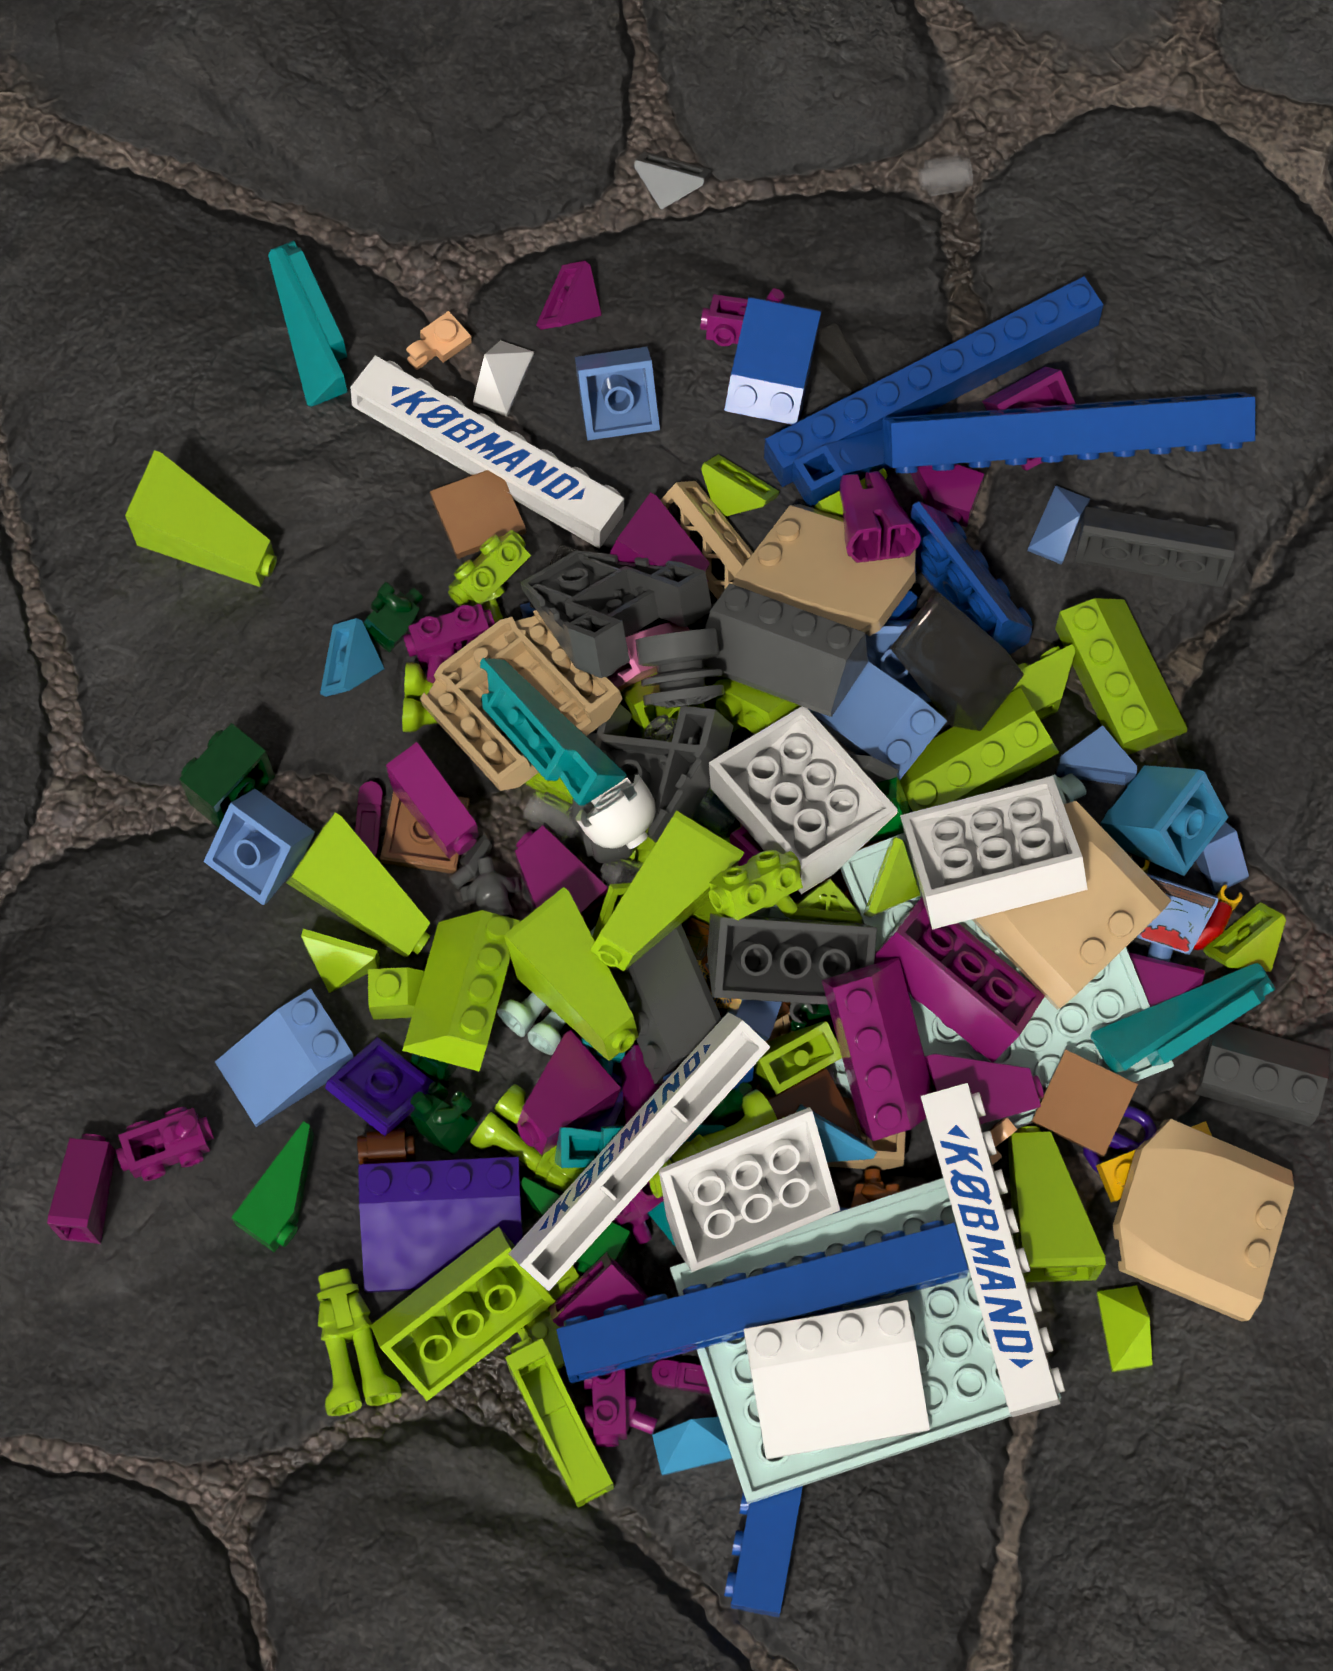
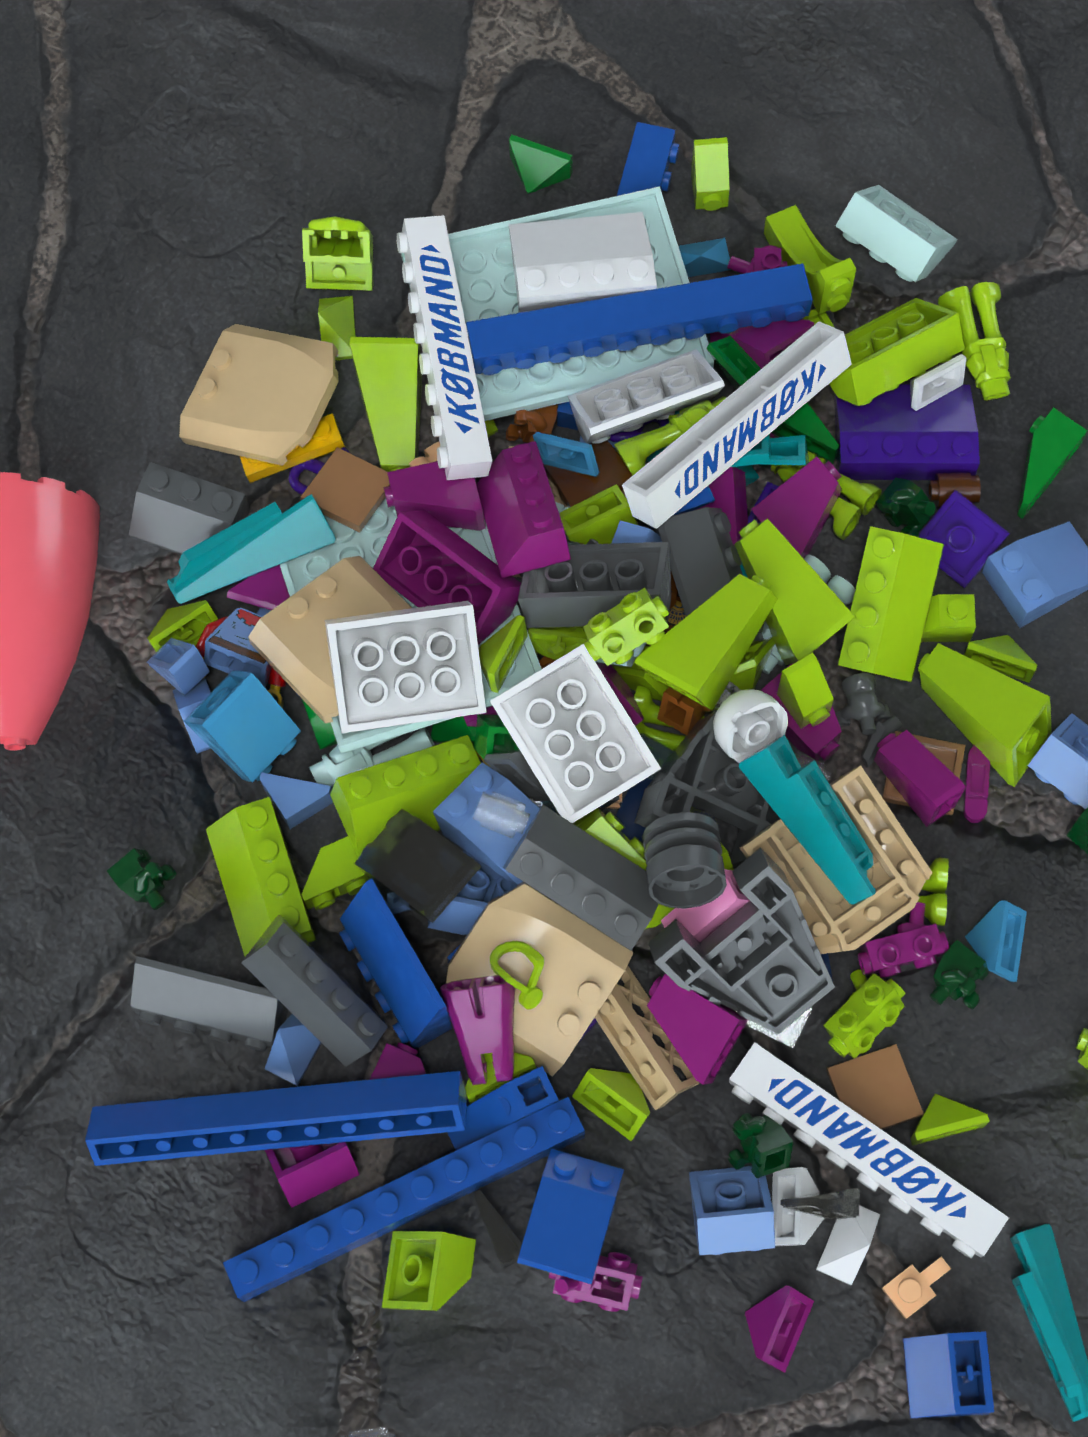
camera: 175 degrees left, 0 degrees up
(407, 483) = (946, 1119): none -> lime slope
(407, 1277) = (937, 382): none -> white slope
(409, 260) = (948, 1375): none -> blue slope
(450, 1485) = (894, 233): none -> light aqua slope
(528, 394) = (827, 1204): none -> clear smoke slope
(555, 399) = (790, 1225): none -> white slope
(555, 867) = (805, 692): none -> lime slope
(590, 449) = (763, 1143): none -> dark green piece
(638, 1258) = (733, 361): none -> green slope
(683, 1541) = (710, 173): none -> lime slope
(833, 538) = (530, 994): none -> lime piece
(874, 703) = (501, 814): none -> clear brick
(902, 1559) = (538, 164): none -> green slope
(905, 320) = (426, 1269): none -> lime slope
(1044, 545) = (315, 992): none -> dark grey slope
(1135, 1416) = (338, 254): none -> lime piece
(1247, 666) = (140, 878): none -> dark green piece
(1248, 885) = (179, 665): none -> medium blue slope

